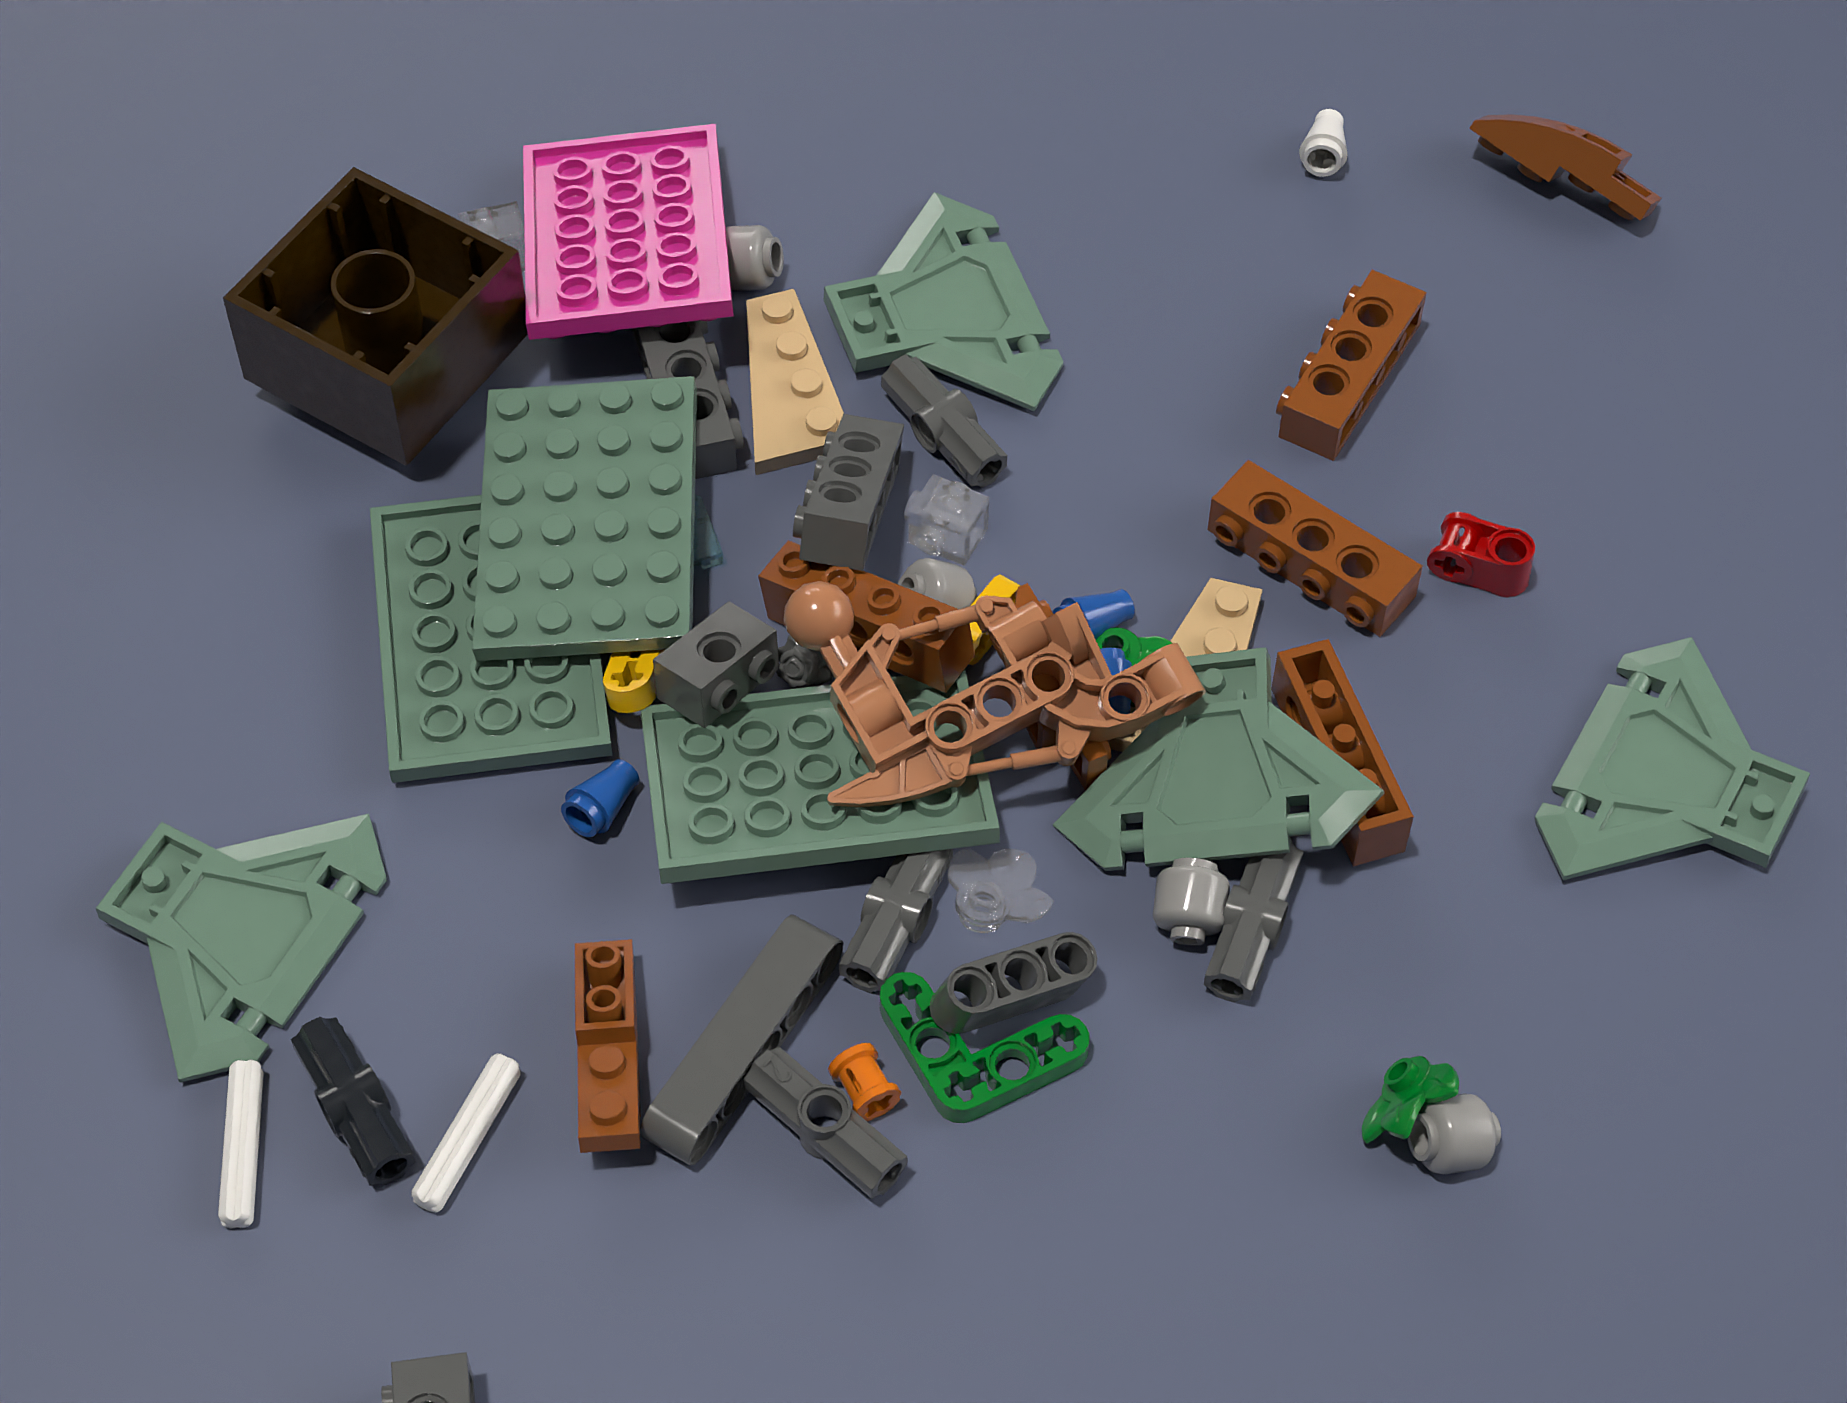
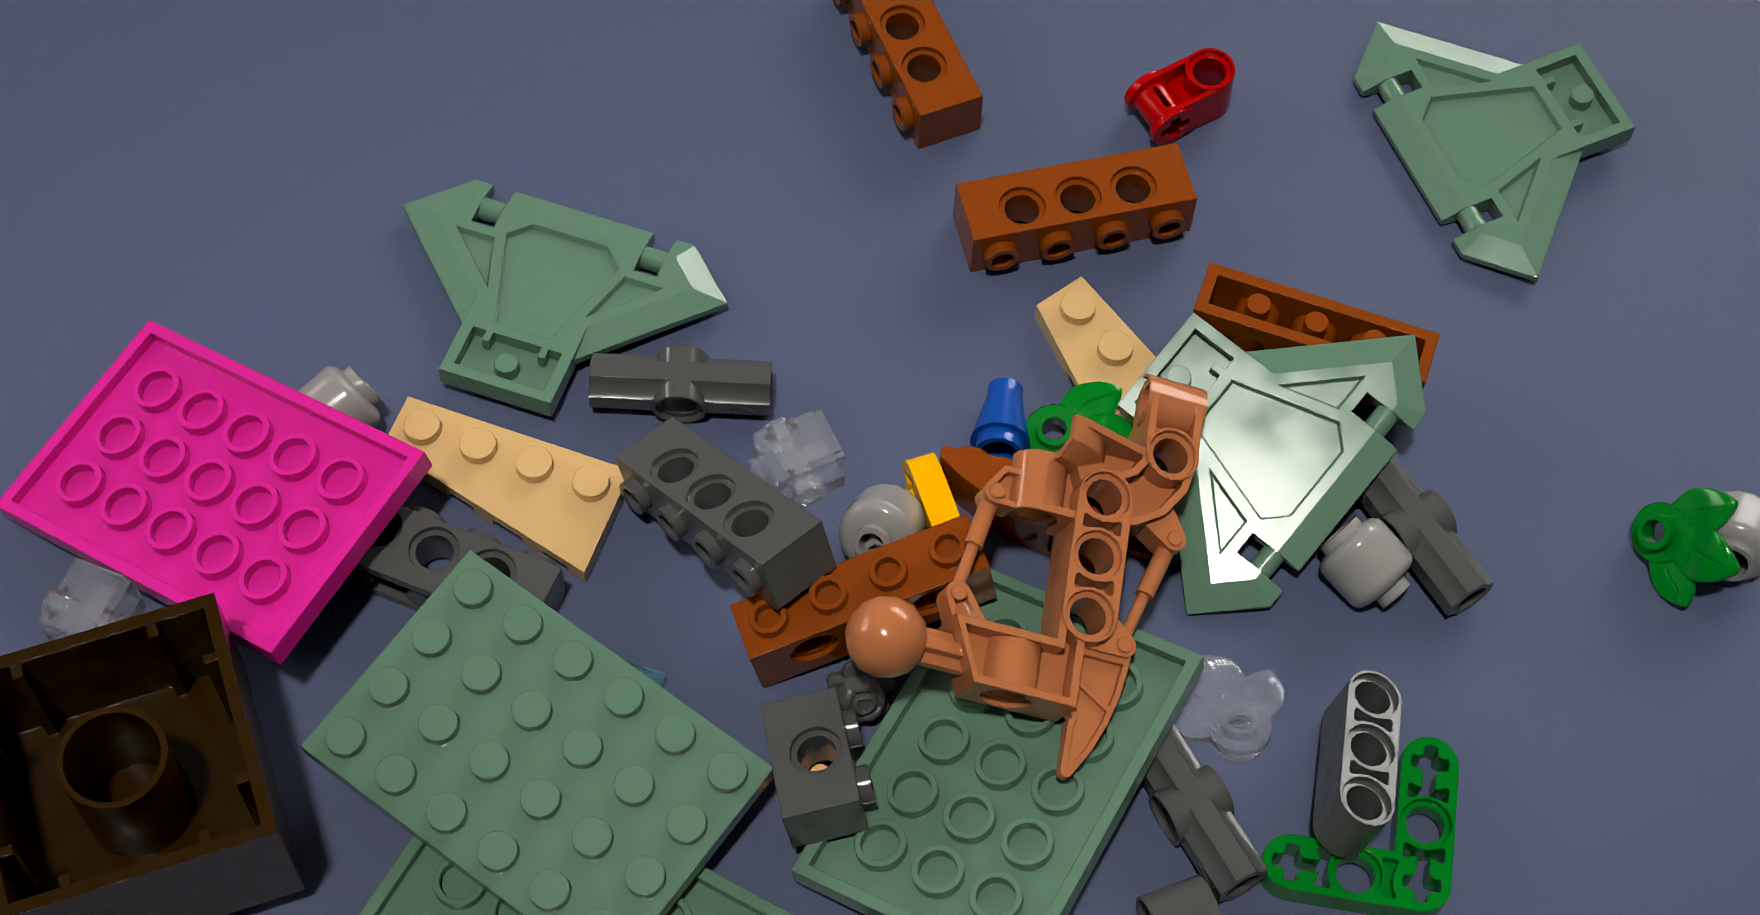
camera: 55 degrees left, 5 degrees up
(630, 680) = (757, 835): yellow beam -> none

